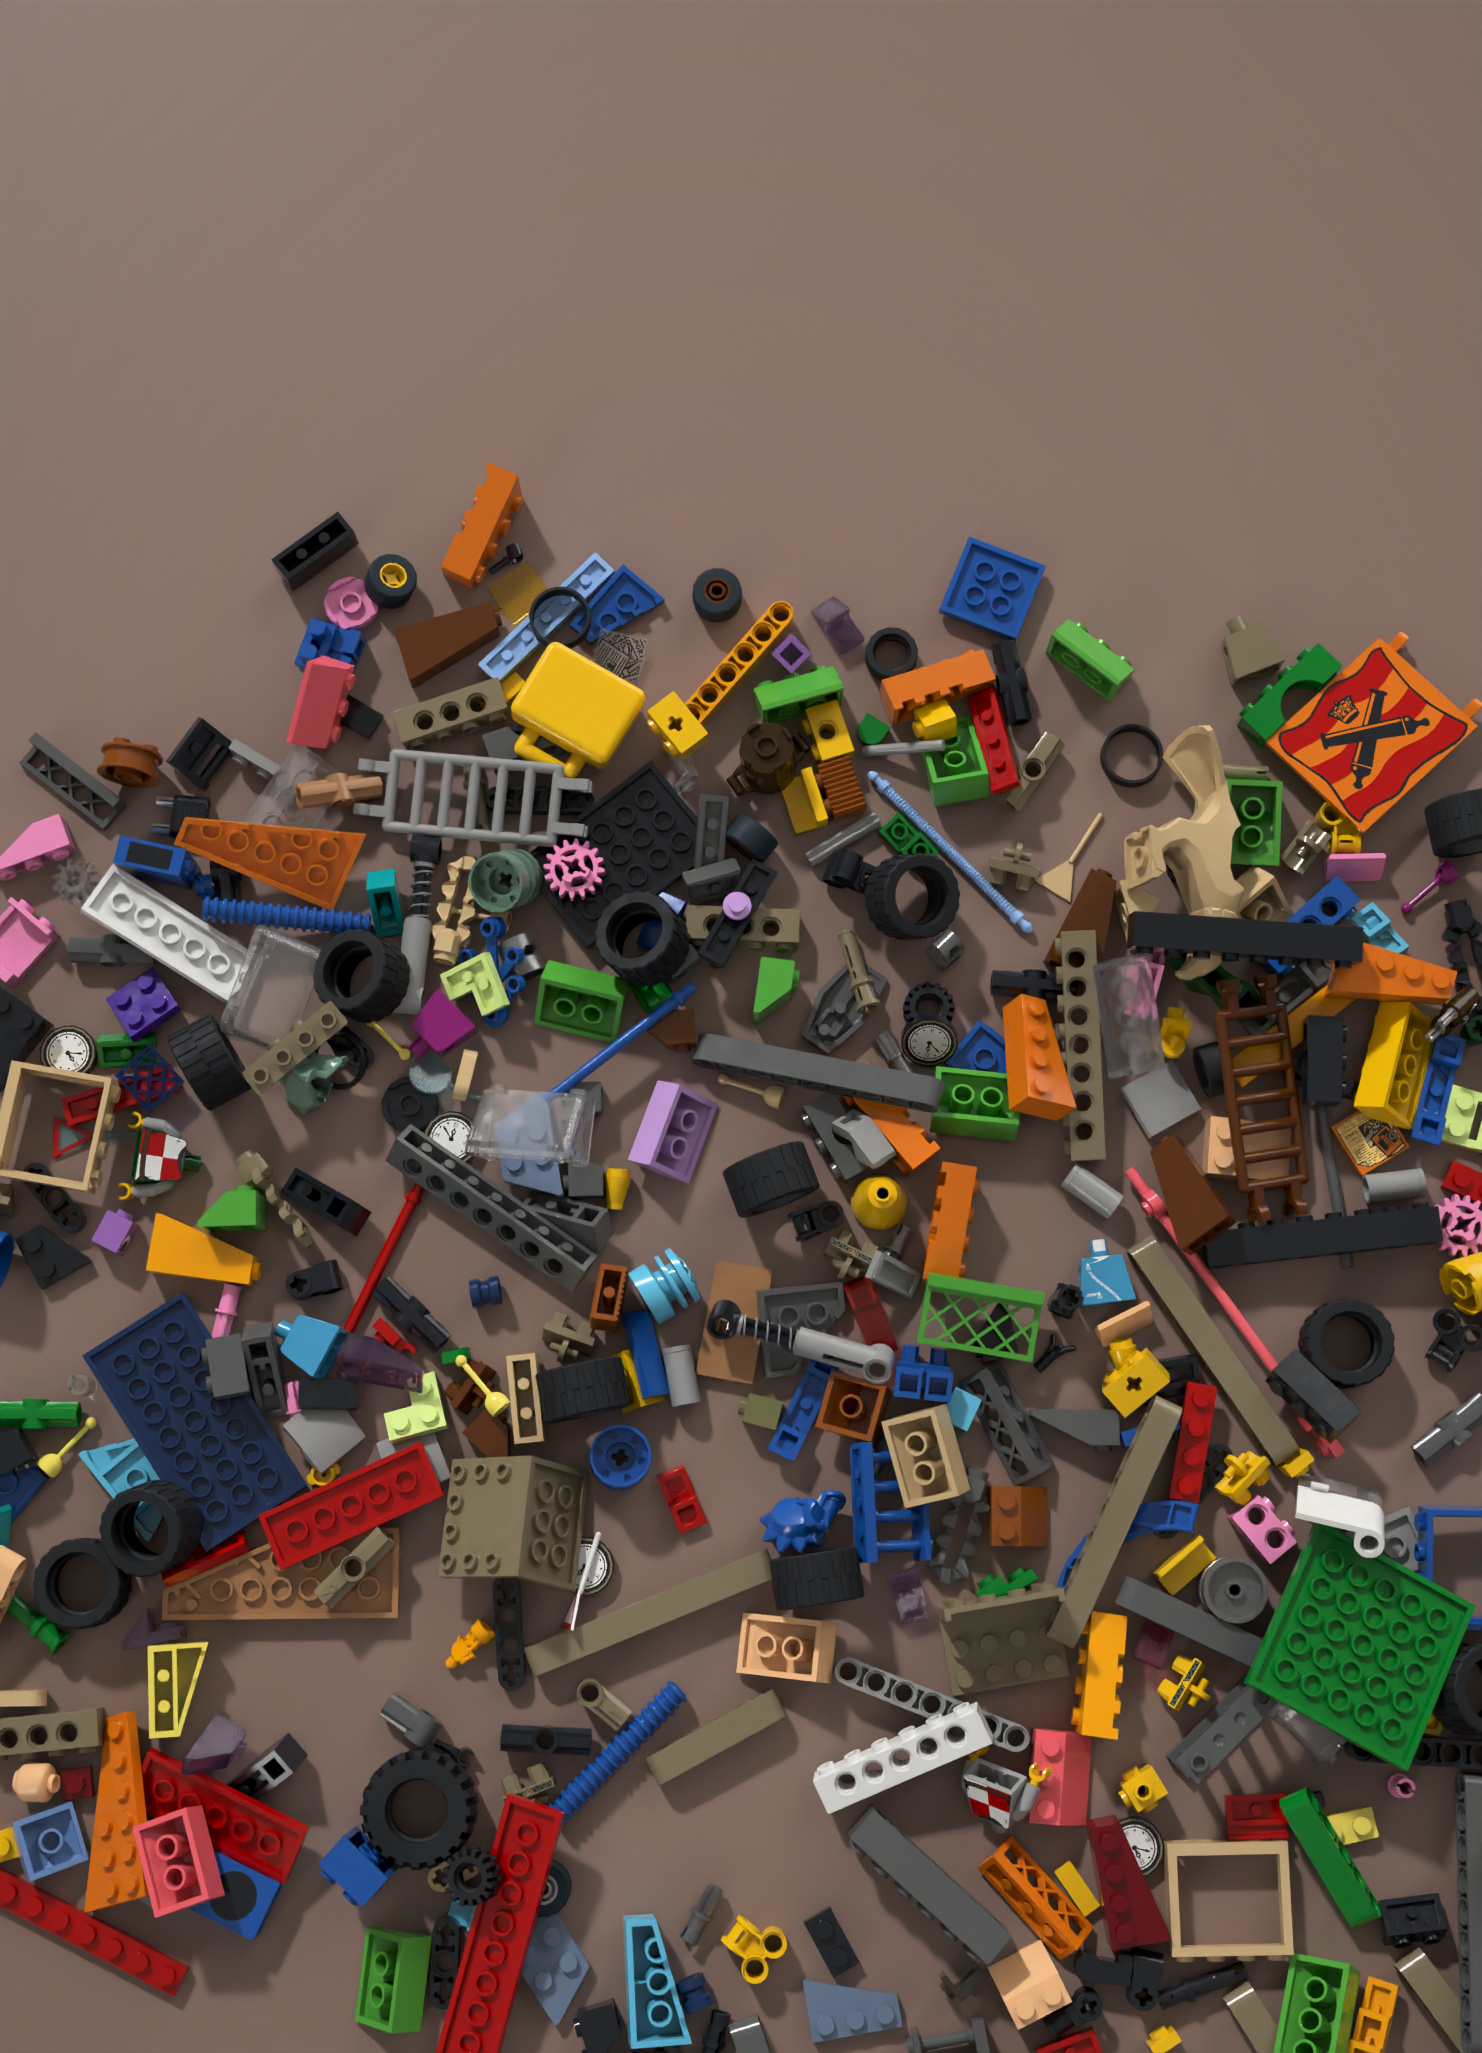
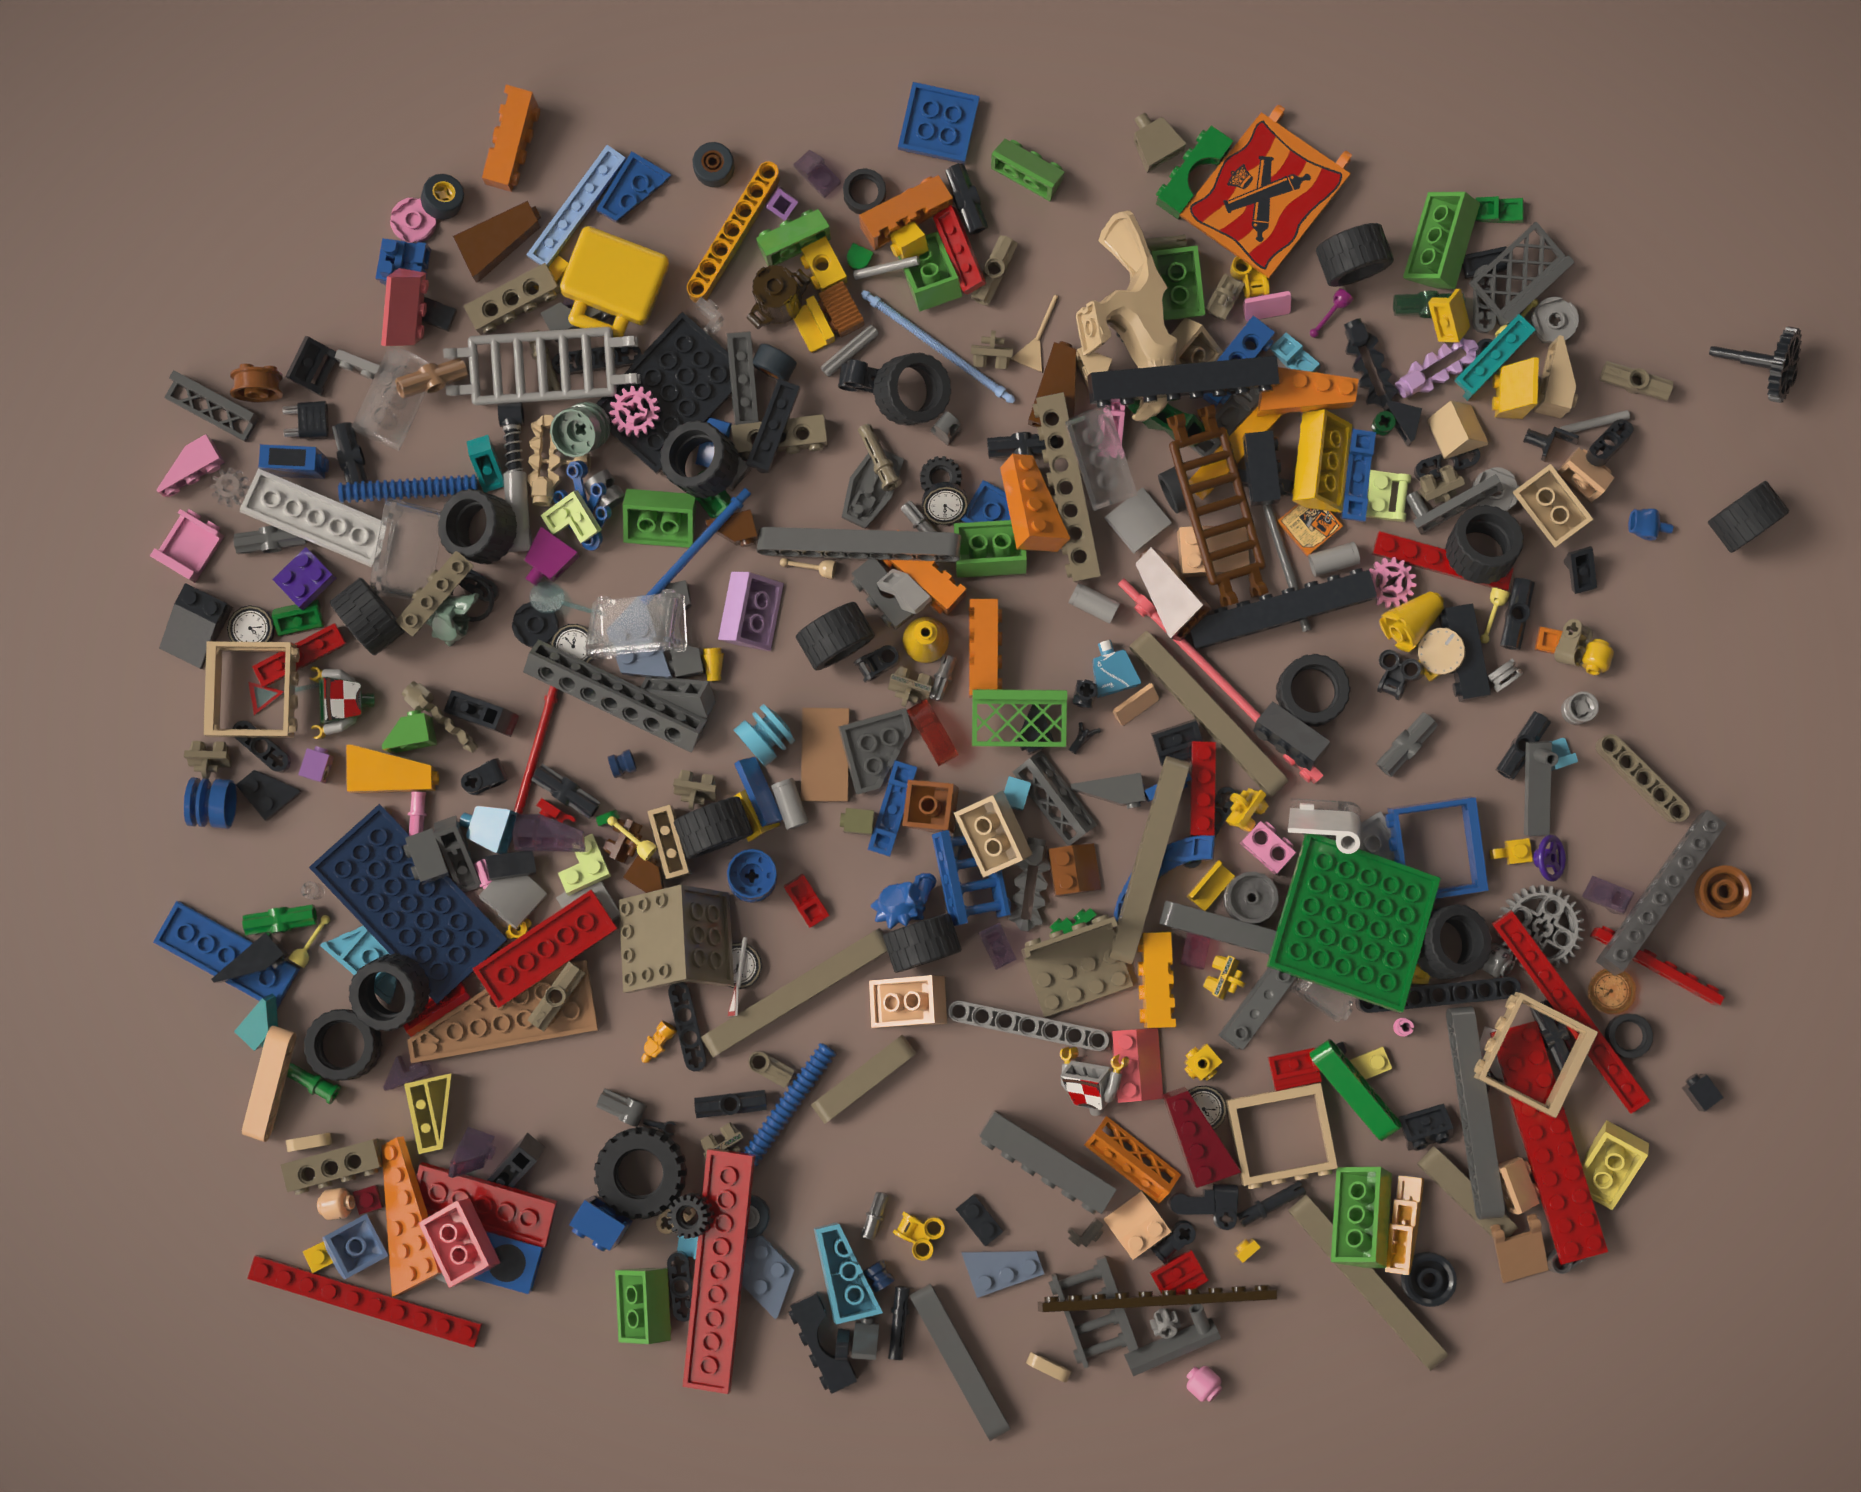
camera: 10 degrees left, 5 degrees up
(135, 1062) = (335, 649): clear blue window -> none
(203, 885) = (335, 474): blue plate -> none
(292, 859) = (400, 440): orange wing -> none
(315, 551) = (375, 181): black brick -> none
(403, 1053) = (523, 584): light yellow hinge -> none
(464, 1075) = (575, 593): tan beam -> none
(514, 556) = (540, 158): black hand -> none
(517, 592) = (550, 188): clear yellow piece -> none
(555, 591) = (583, 182): black tyre -> none
(608, 1297) = (721, 752): dark orange brick -> none
(620, 654) = (642, 227): clear piece -> none
(673, 711) = (693, 268): yellow brick -> none
(711, 881) = (748, 403): dark grey slope -> none
(737, 906) = (771, 420): lavender plate -> none
(774, 986) = (812, 480): bright green slope -> none
(805, 1342) = (883, 761): piece -> none
(837, 1794) = (965, 1107): white brick -> none
(893, 1275) = (945, 696): light grey tile -> none
(905, 838) = (899, 341): green slope -> none
(923, 1377) = (984, 773): blue hips -> none
(1076, 1888) = (1163, 1147): yellow piece -> none
(1120, 1350) = (1139, 731): yellow cone -> none
(1130, 1396) = (1148, 760): yellow brick -> none
(1141, 730) = (1076, 220): black tyre -> none
(1174, 1032) = (1140, 465): yellow hips -> none
(1297, 1464) = (1287, 792): yellow plate -> none
(1453, 1013) = (1361, 412): dark brown piece -> none

